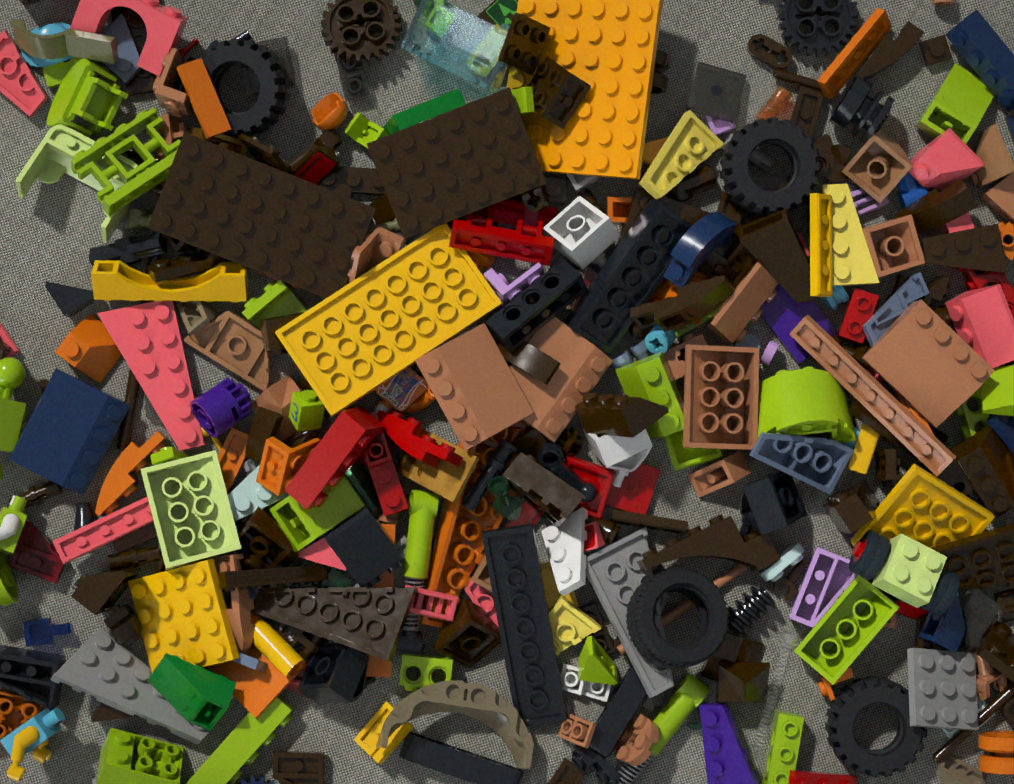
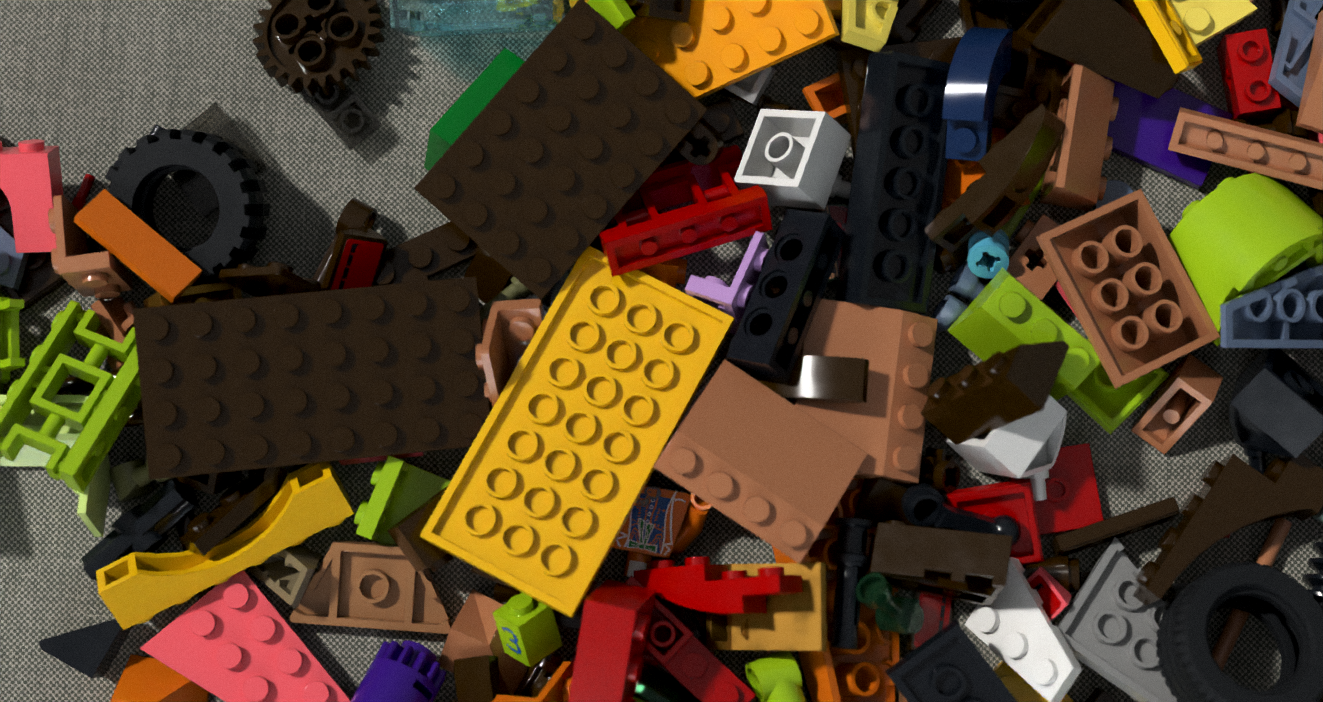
camera: 30 degrees left, 5 degrees down
(329, 112) = (336, 177): orange hair -> none
(364, 130) = (397, 178): lime bracket -> none
(769, 353) = (1153, 190): lavender tile -> none
(838, 295) = (1200, 76): medium azure wheel -> none

